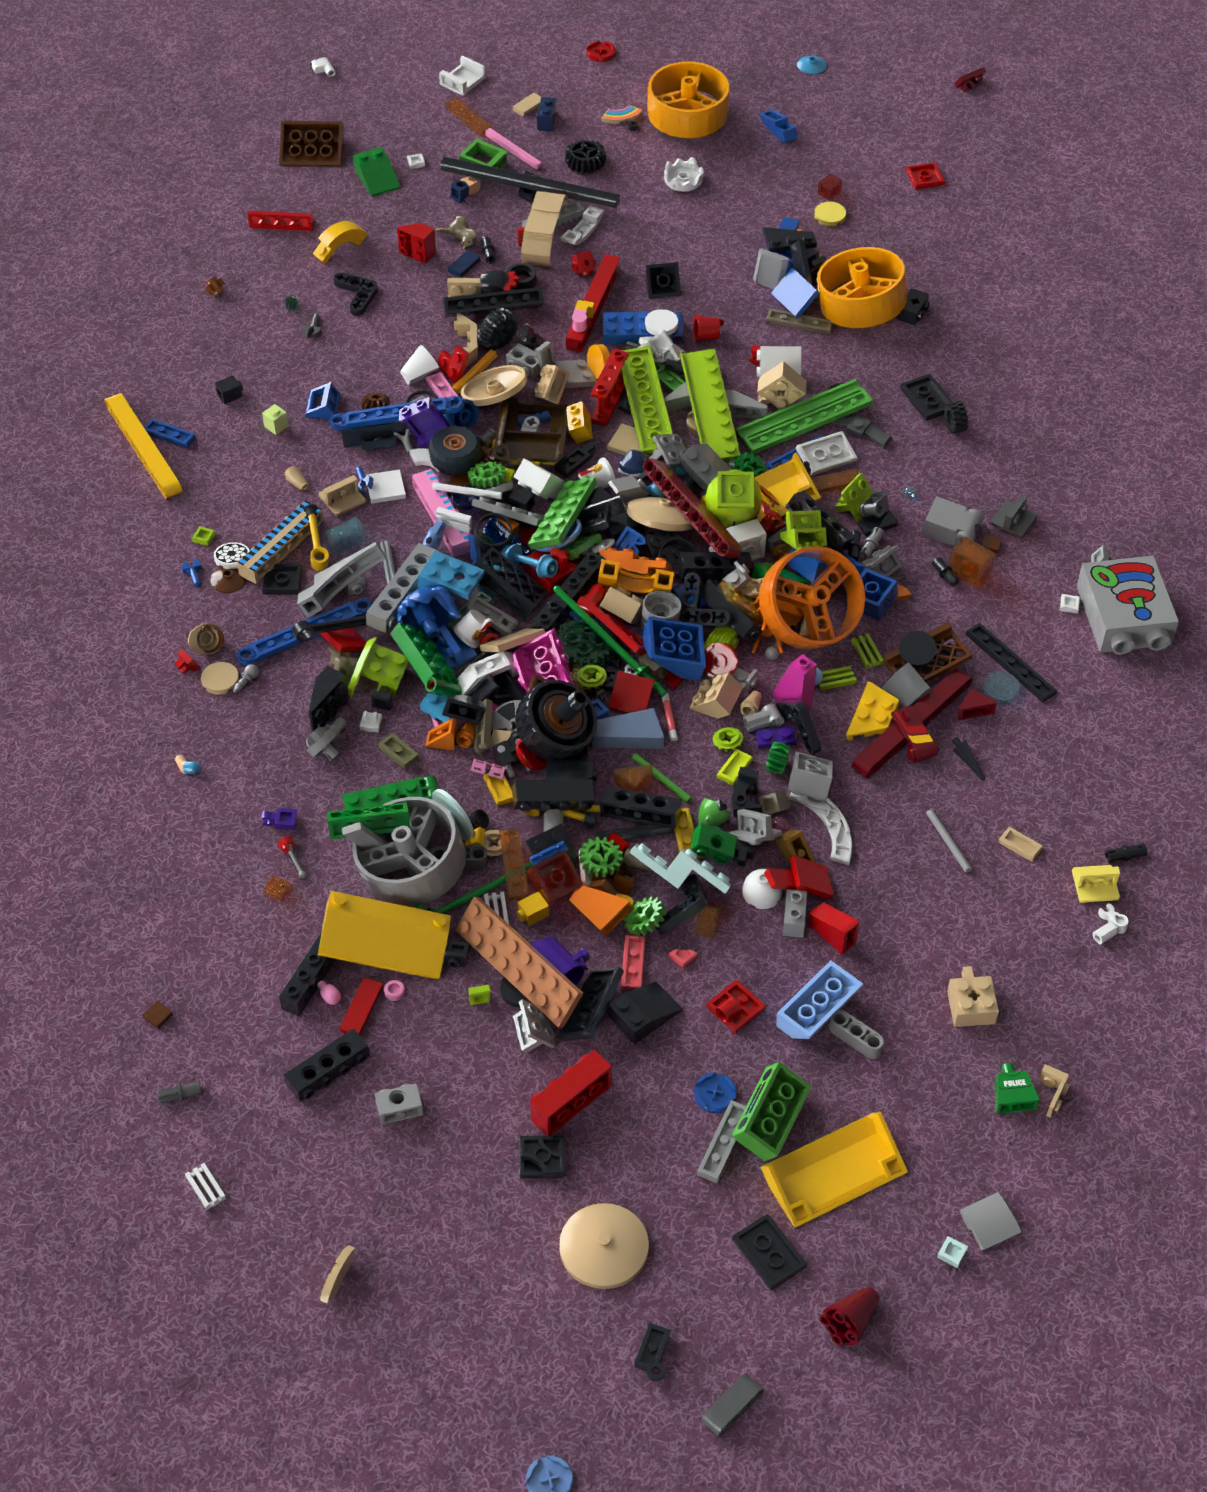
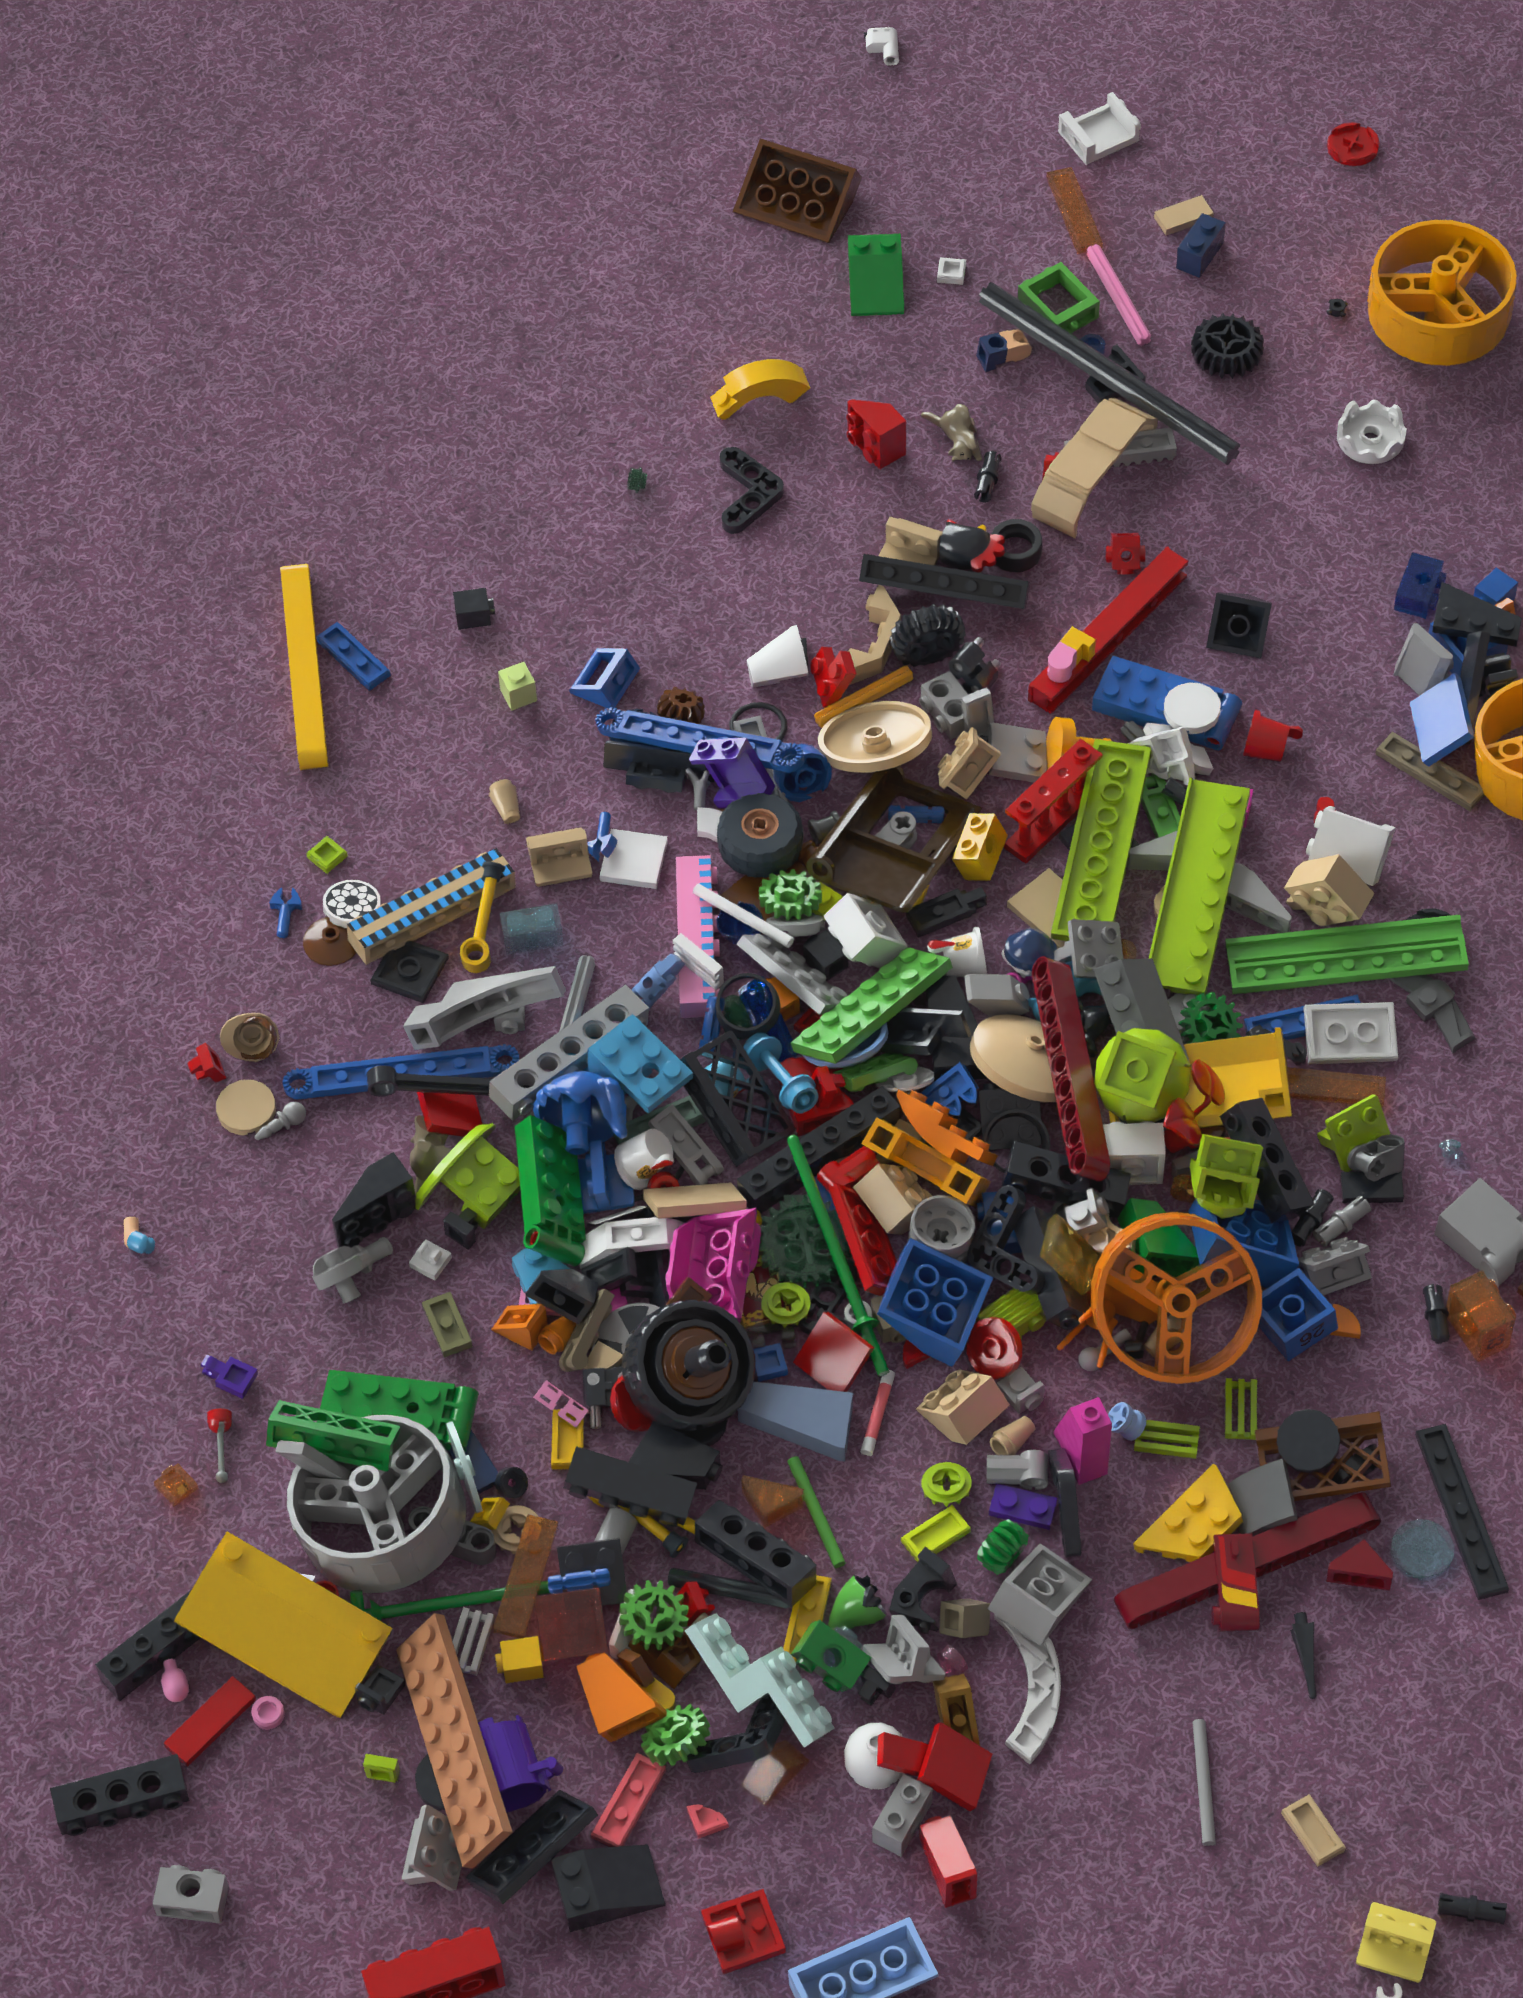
camera: 25 degrees right, 5 degrees up
(214, 286) = (531, 412): dark orange gear -> none
(280, 220) = (686, 321): red fence -> none
(317, 330) = (655, 542): dark grey bar -> none
(440, 386) = (800, 713): bright pink tile -> none
(464, 264) = (938, 490): dark blue tile -> none
(585, 227) = (1161, 484): white slope -> none
(616, 116) = (1319, 281): tile -> none
(747, 237) = (1419, 585): none -> clear blue brick

